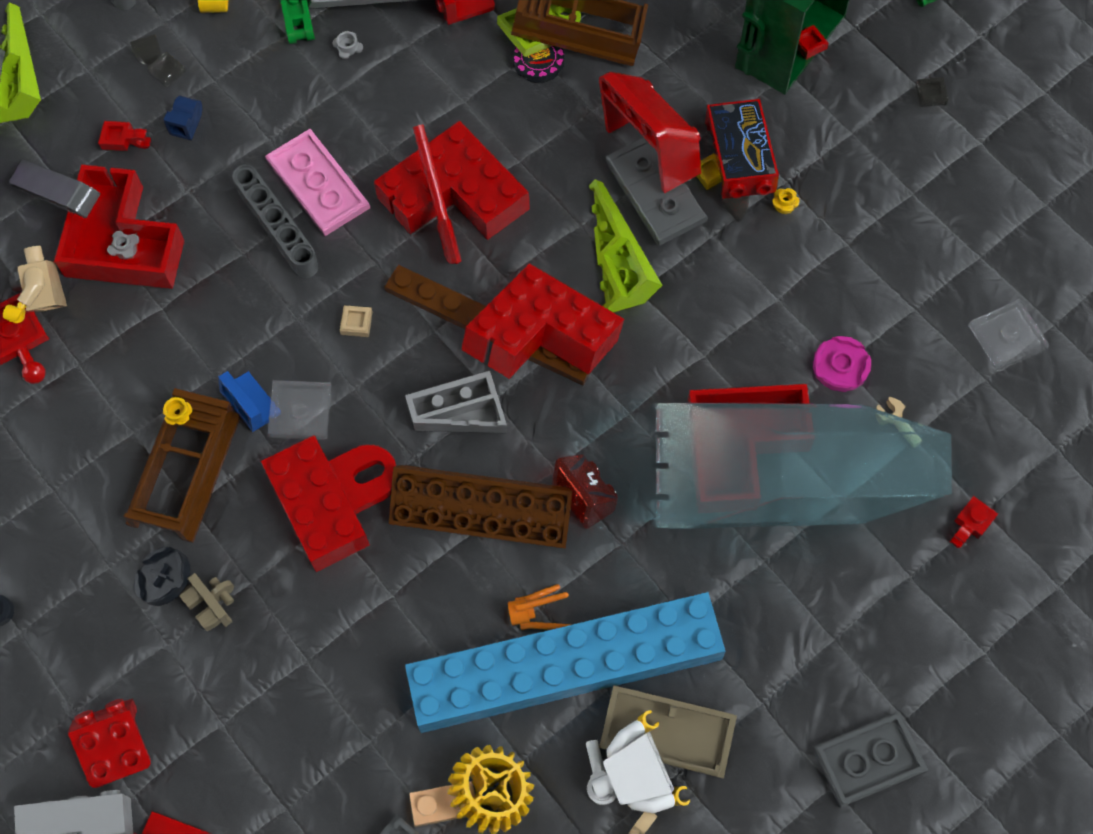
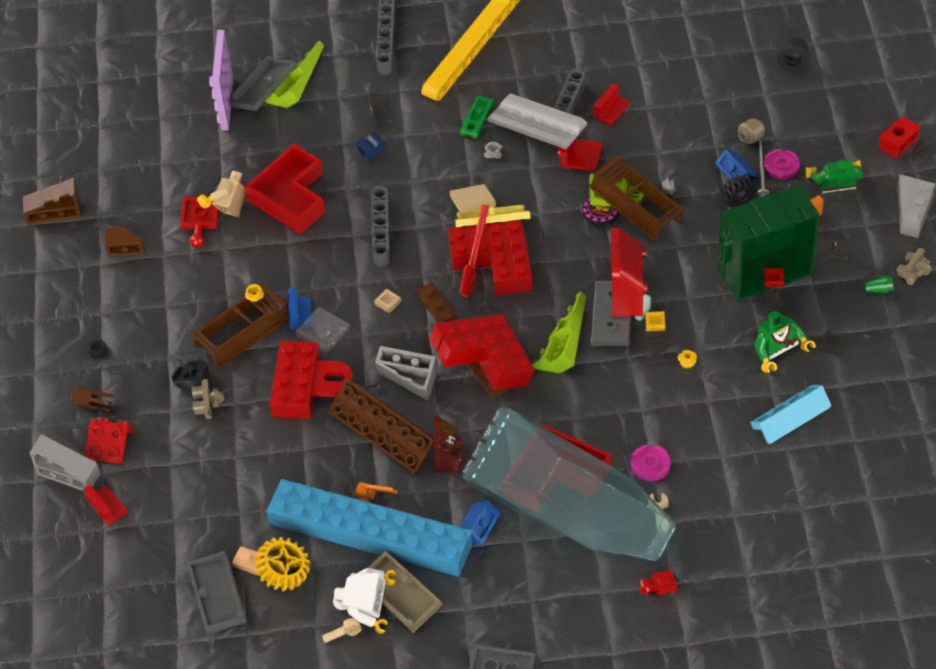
camera: 35 degrees right, 15 degrees down
(43, 693) = (88, 398): none -> reddish brown arm
(54, 188) = (270, 148): dark grey beam -> none
(120, 134) = (329, 139): red plate -> none
(126, 251) = (289, 198): light grey plate -> none
(317, 182) = (420, 217): bright pink tile -> none
(370, 123) = (472, 198): none -> tan tile
(401, 142) = (498, 214): none -> light yellow container
(694, 568) = (480, 520): none -> blue panel
(742, 148) = (679, 314): panel -> none
(875, 119) = (777, 337): none -> green torso
(956, 205) = (792, 413): none -> medium azure panel
(1009, 335) = (765, 498): clear plate -> none

